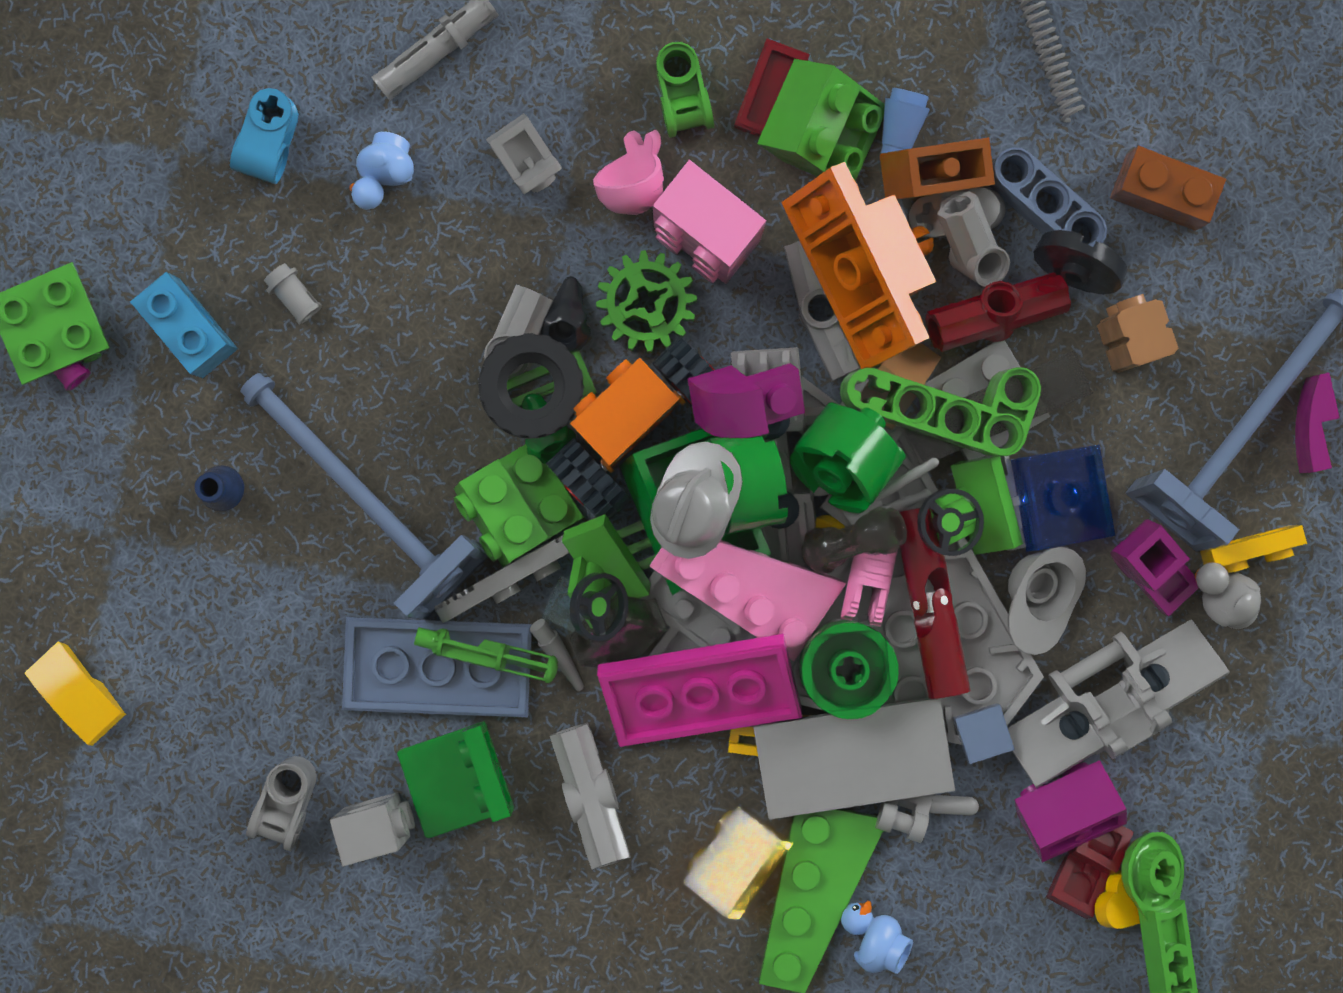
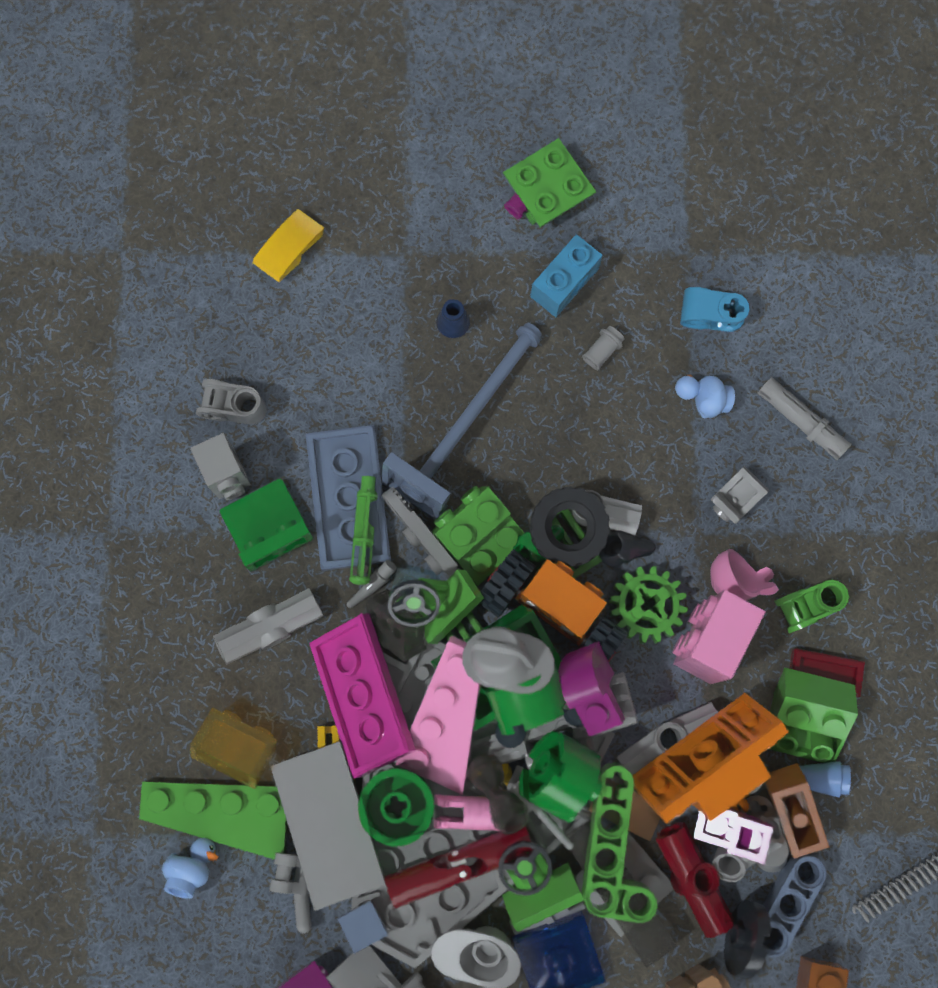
camera: 75 degrees right, 10 degrees down
(955, 246) = (738, 833): none -> slope

